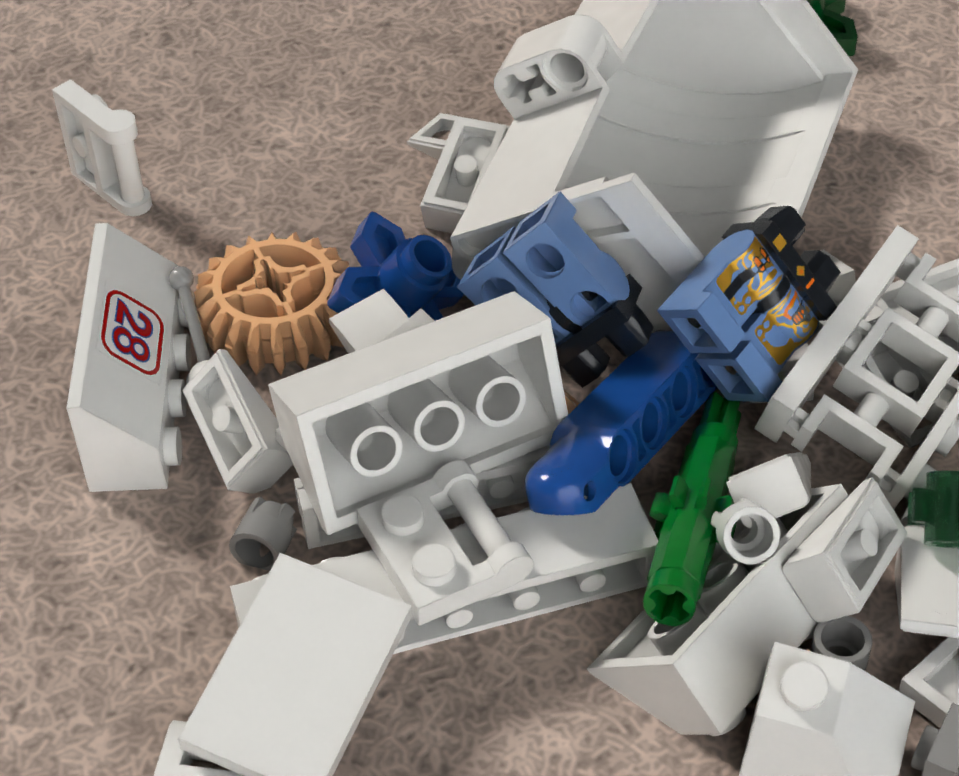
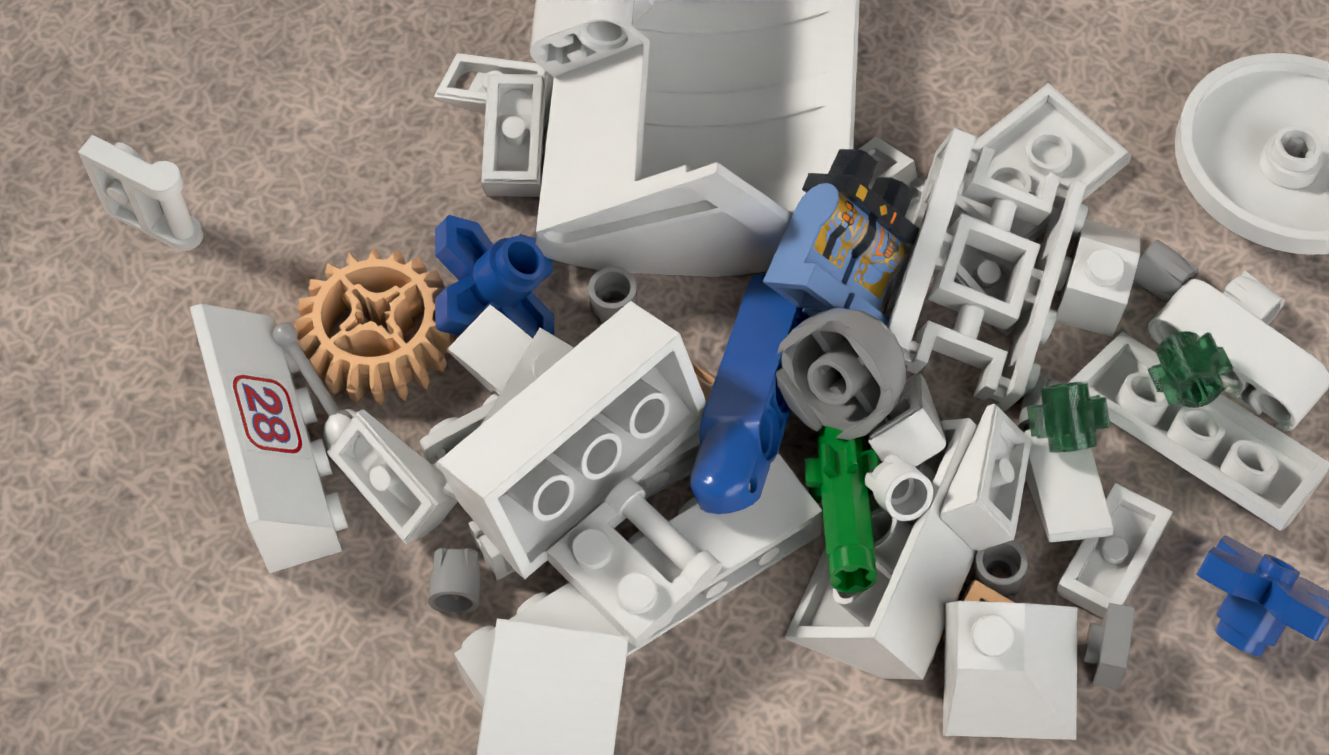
camera: 15 degrees left, 15 degrees up
(569, 281) = (661, 269): medium blue hips -> none
(715, 407) = (842, 371): none -> light grey cylinder

